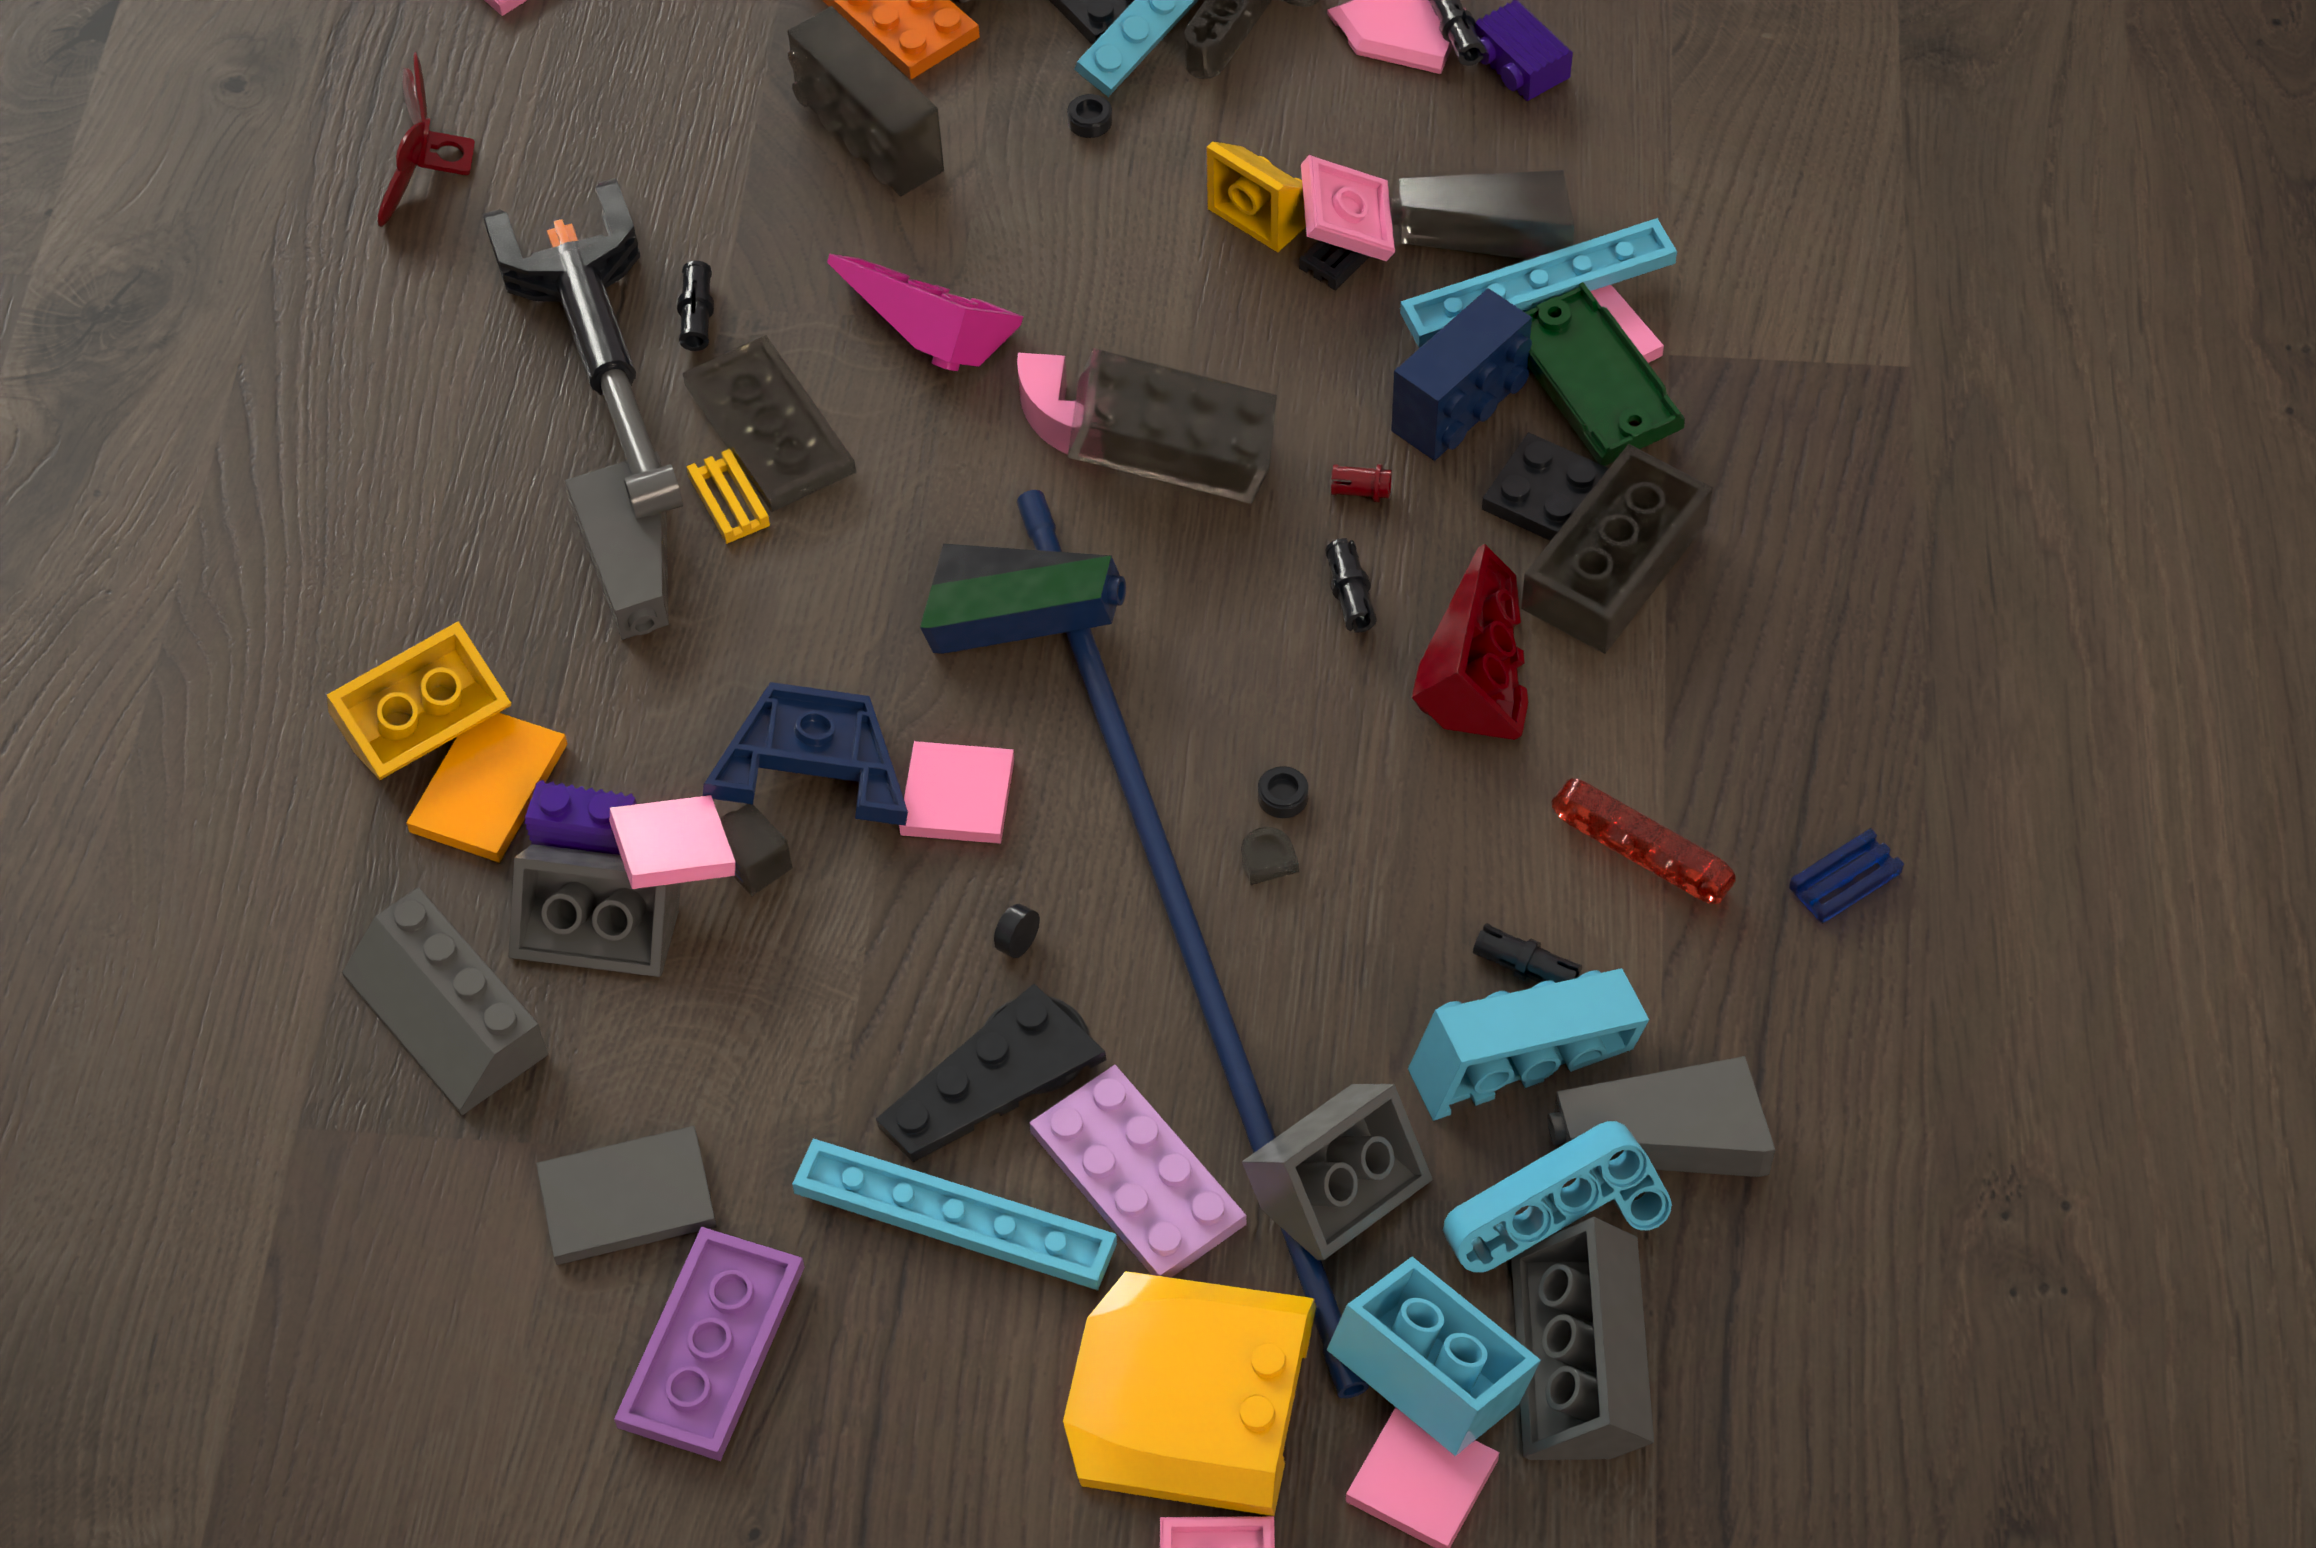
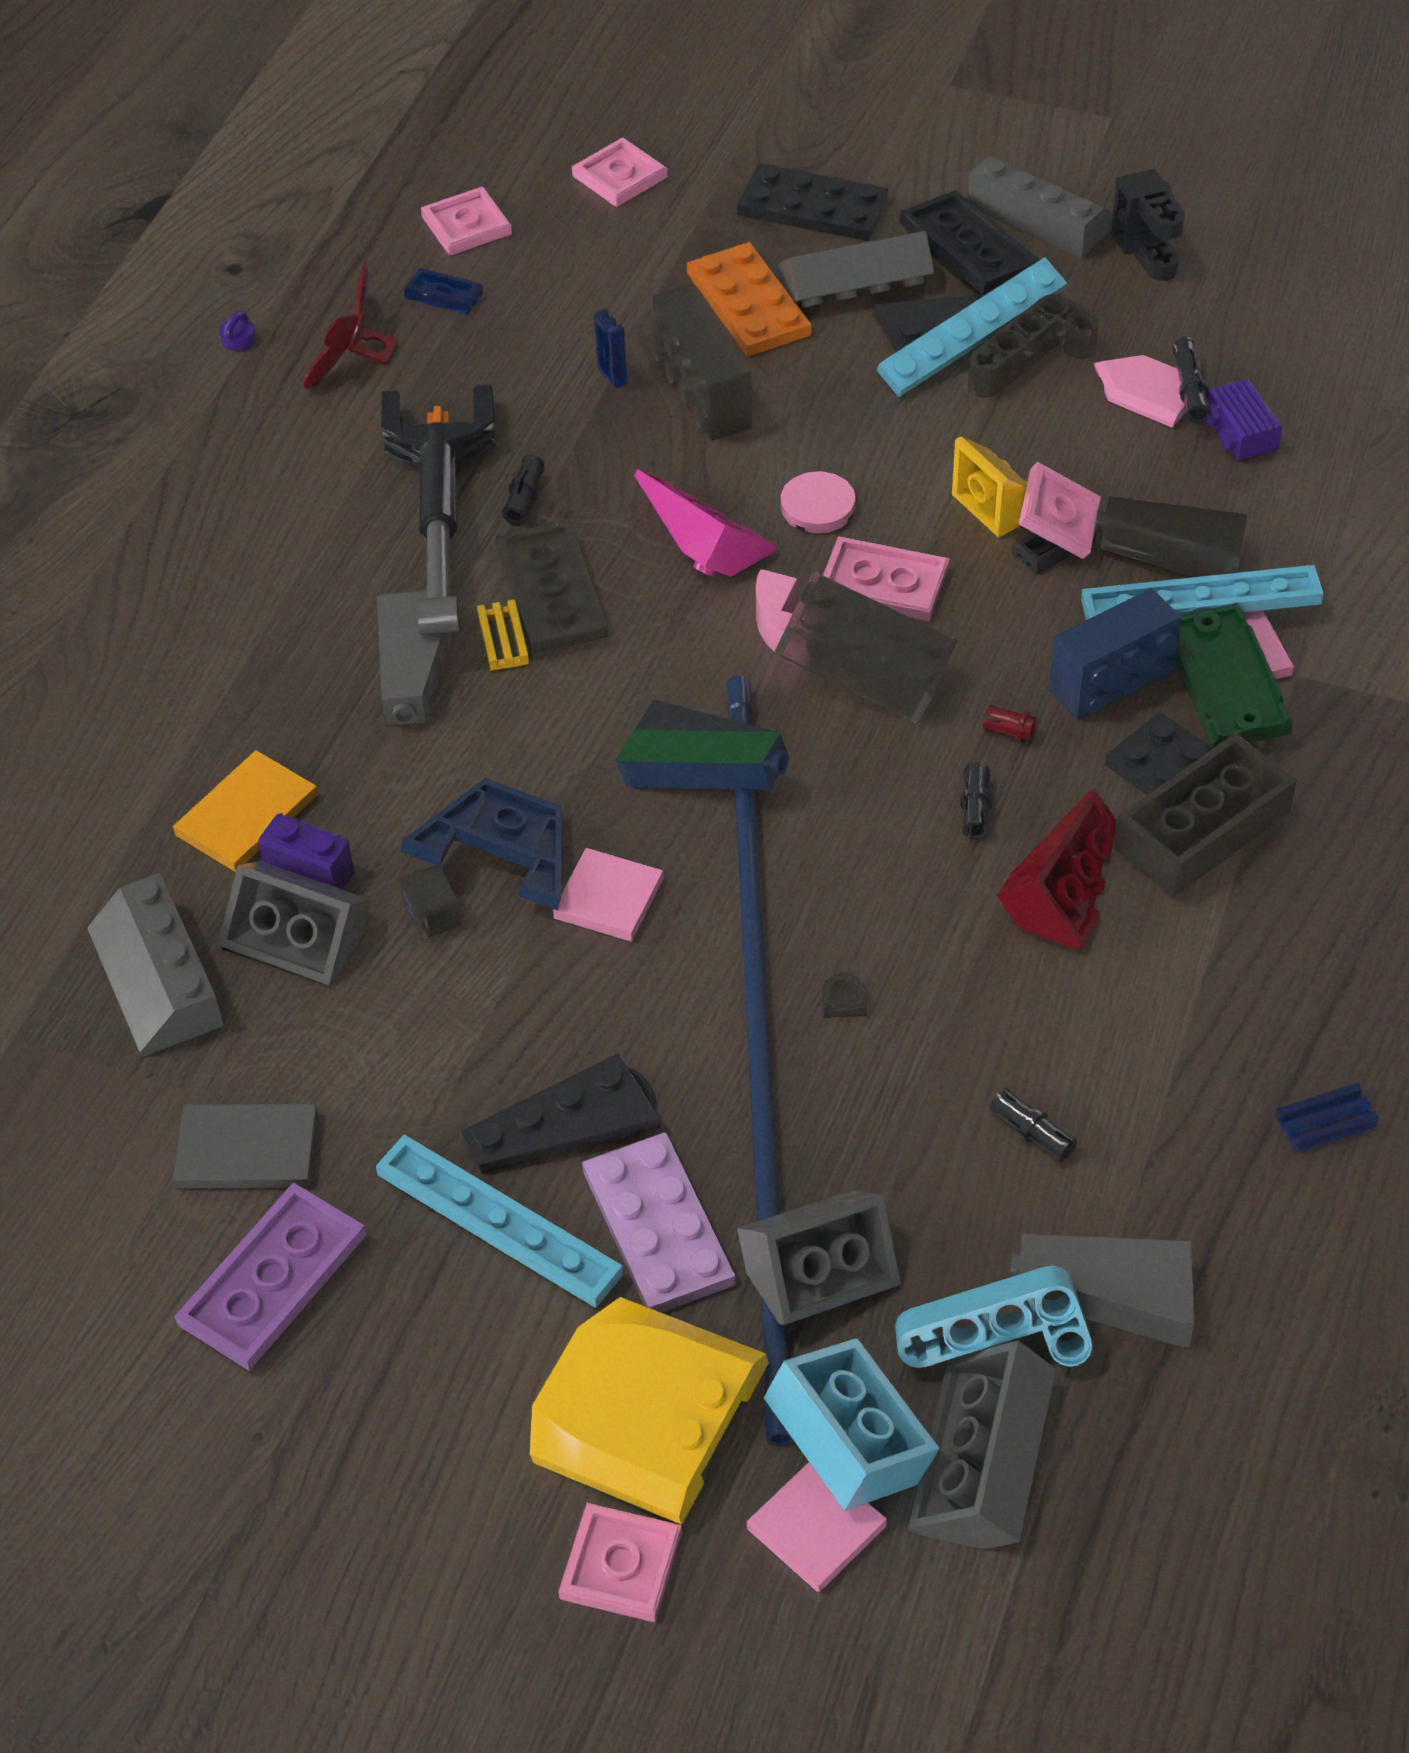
camera: 15 degrees right, 5 degrees down
(270, 169) = (237, 332): none -> dark purple tile
(416, 701) = (208, 734): yellow slope -> none
(509, 69) = (443, 291): none -> clear blue tile
(672, 842) = (363, 879): bright pink tile -> none
(749, 105) = (610, 348): none -> clear blue tile
(1016, 930) = (619, 1010): black tile -> none
(1054, 251) = (818, 502): none -> bright pink tile
(1089, 116) = (878, 407): black tile -> none
(1164, 327) = (889, 575): none -> bright pink tile
(1283, 792) = (871, 950): black tile -> none
(1524, 1036) = (1009, 1184): medium azure wedge -> none
(1643, 841) = (1160, 1052): clear red beam -> none

